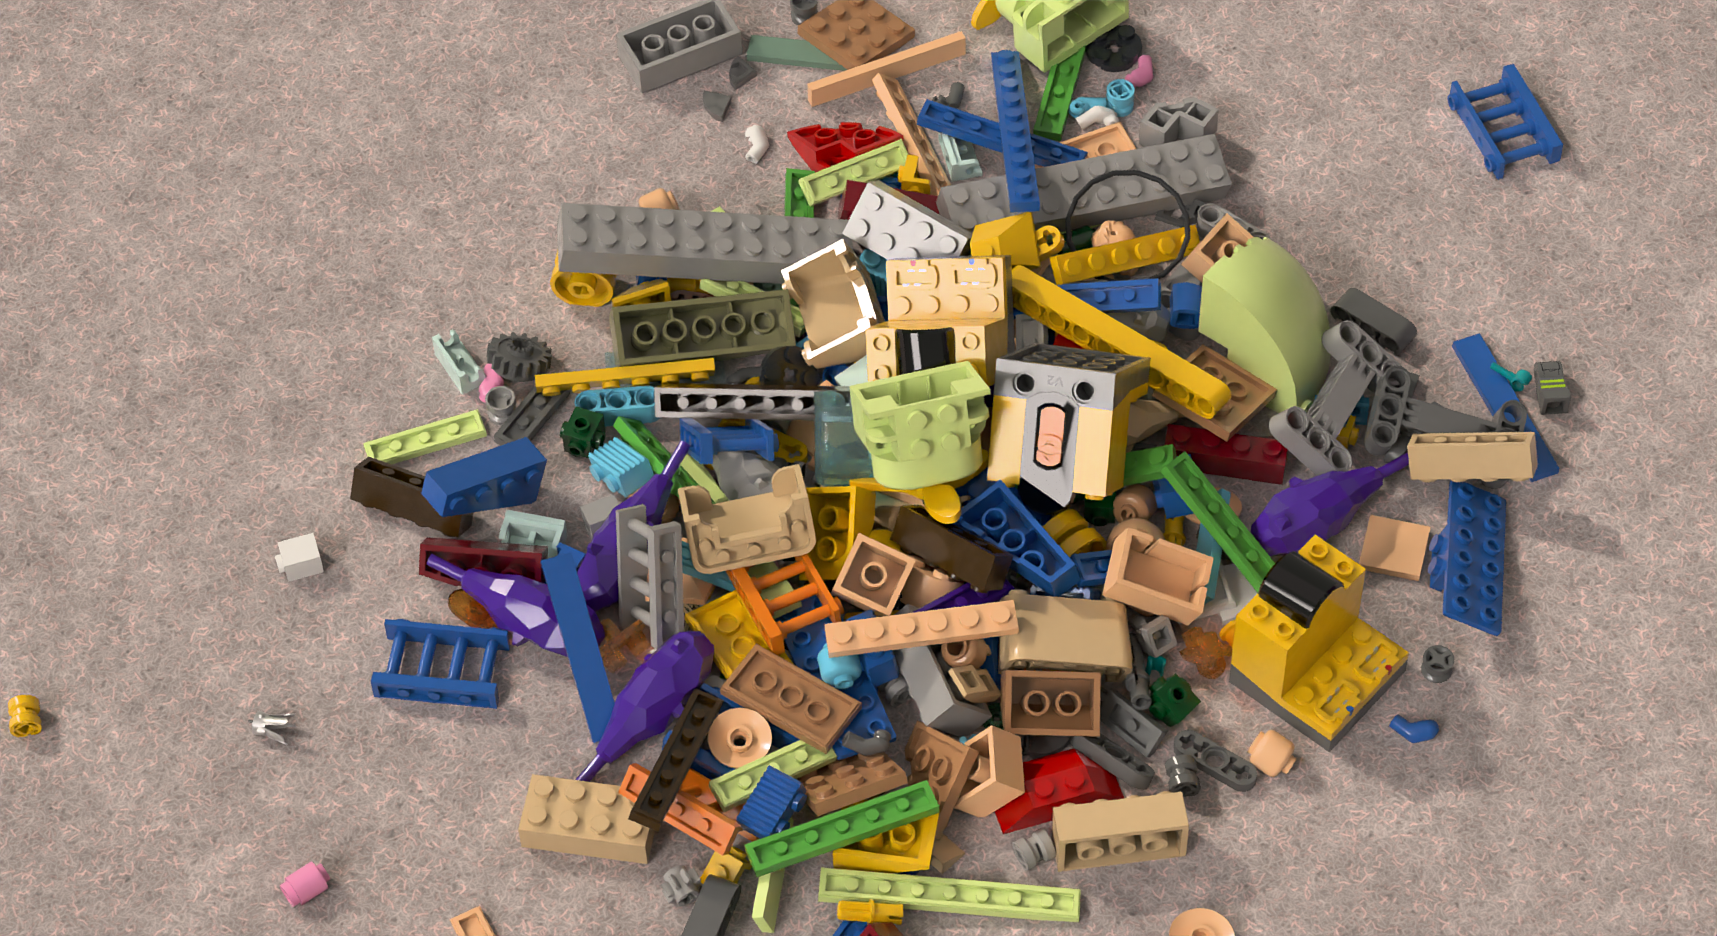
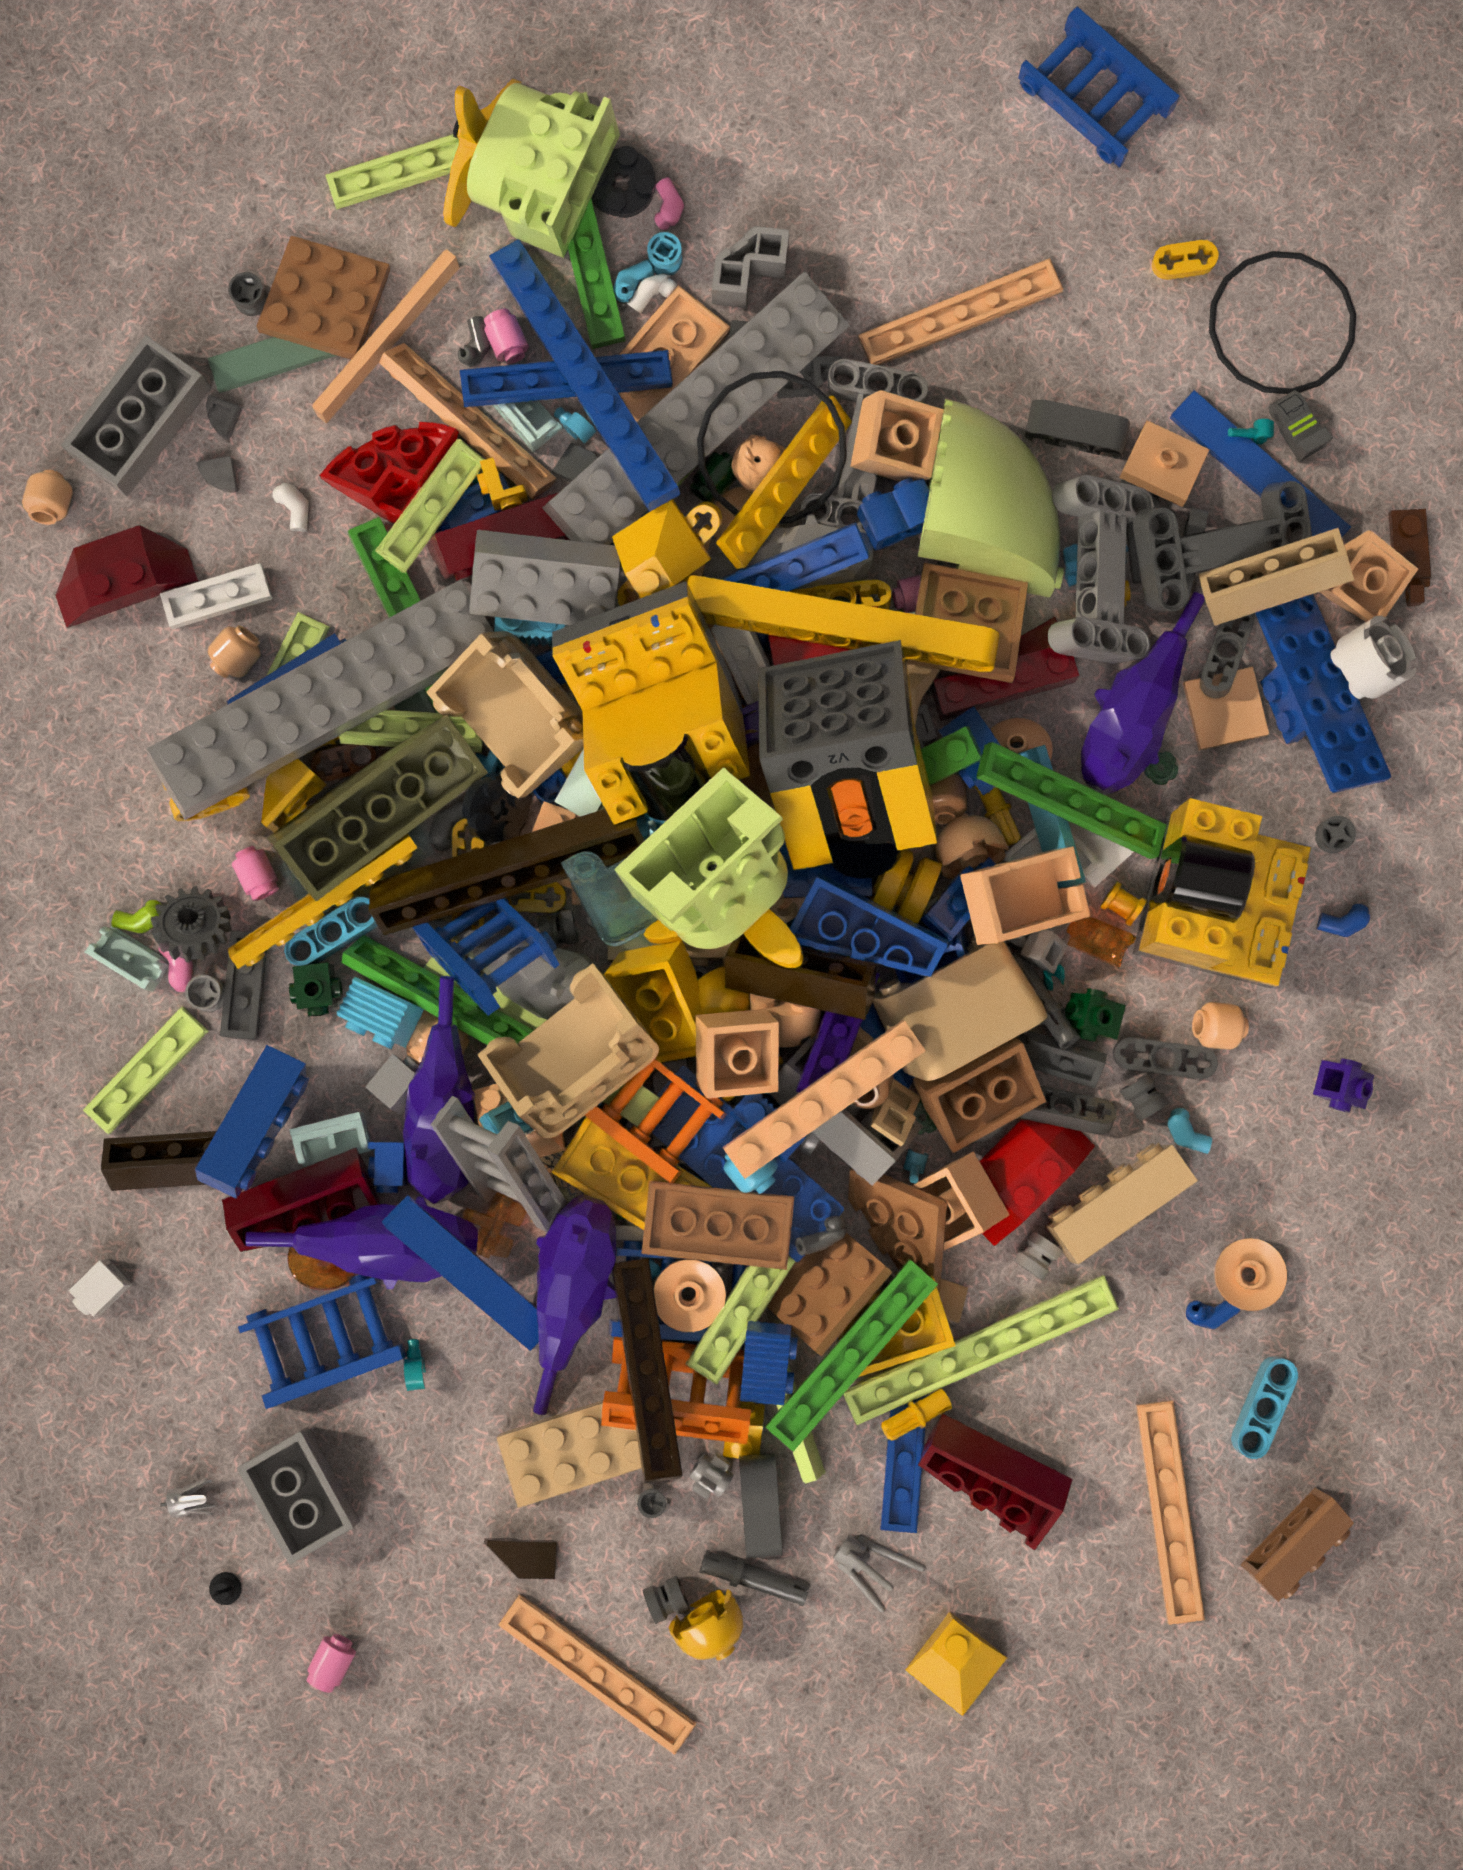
camera: 25 degrees left, 30 degrees up
(257, 801) = (225, 1588): none -> black piece
(356, 753) = (298, 1495): none -> light grey brick
(477, 344) = (138, 922): none -> lime arm
(498, 712) = (414, 1367): none -> teal piece
(501, 880) = (525, 1557): none -> dark brown slope
(585, 68) = (47, 497): none -> light nougat head
(585, 348) = (255, 873): none -> bright pink brick
(608, 133) = (121, 573): none -> dark red wedge
(624, 878) = (652, 1501): none -> dark grey piece
(666, 173) = (216, 596): none -> white plate
(974, 98) = (505, 336): none -> bright pink brick
(991, 170) = (575, 424): none -> medium azure piece
(1202, 822) = (1184, 1134): none -> medium azure arm
(1327, 219) = (961, 313): none -> light nougat tile
(1351, 833) = (1344, 1084): none -> dark purple brick
(1410, 516) = (1230, 664): none -> dark grey beam
(1431, 368) = (1164, 463): none -> light nougat plate
(1517, 251) = (1185, 267): none -> yellow beam
(1528, 550) = (1374, 658): none -> white brick
(1551, 499) = (1378, 577): none -> light nougat slope
(1577, 275) = (1212, 321): none -> black piece
(1599, 505) = (1410, 539): none -> reddish brown hinge

